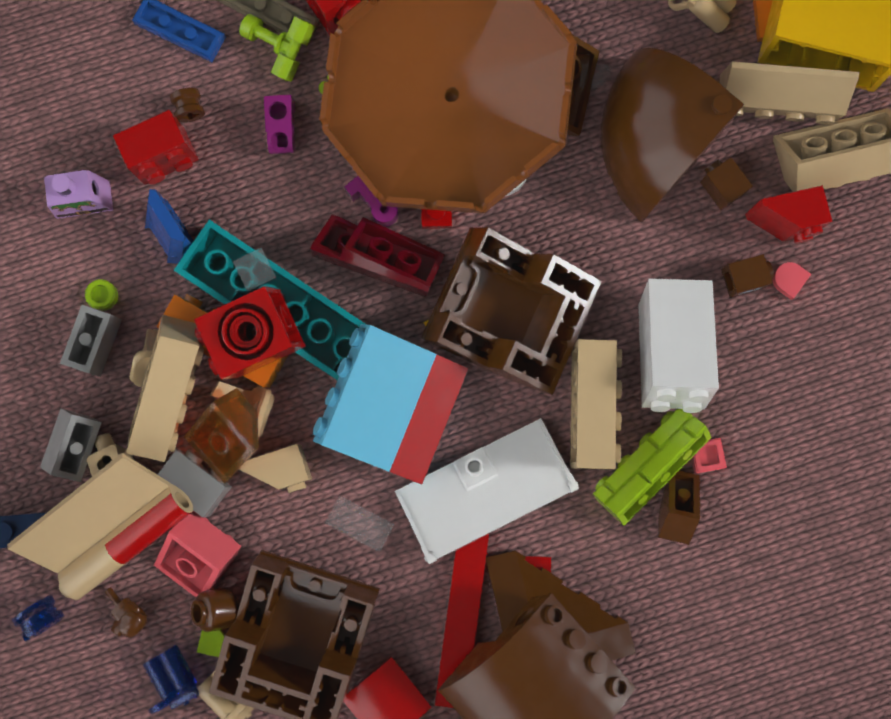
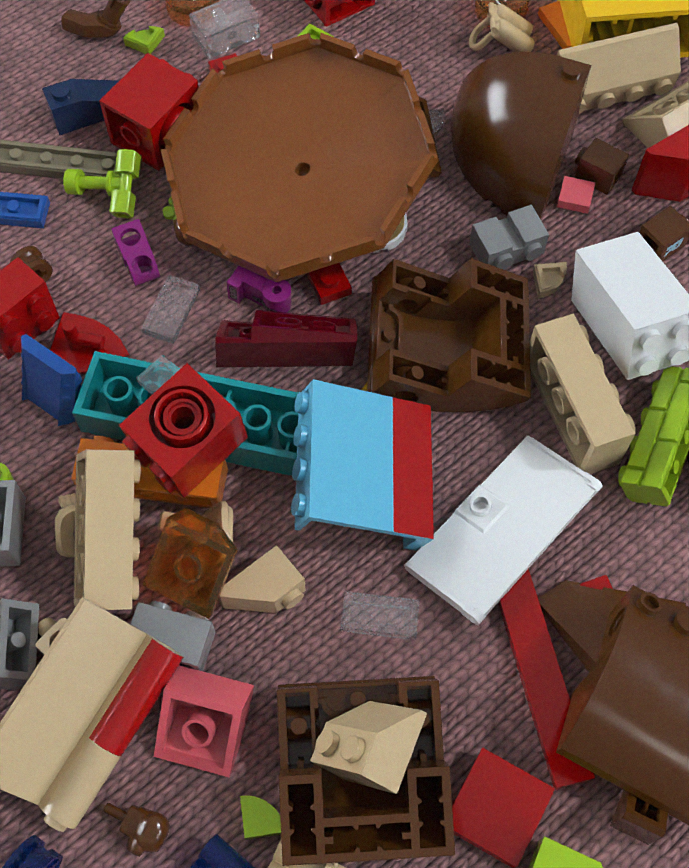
camera: 25 degrees left, 20 degrees down
(209, 195) = (81, 336): none -> red shield
(215, 609) = (250, 771): reddish brown head -> none
(293, 187) = (170, 309): none -> clear tile
(303, 632) = (370, 744): none -> tan slope
(607, 230) = (509, 239): none -> light grey brick
(628, 277) = (549, 277): none -> tan tile
(691, 202) = (576, 194): none -> coral tile

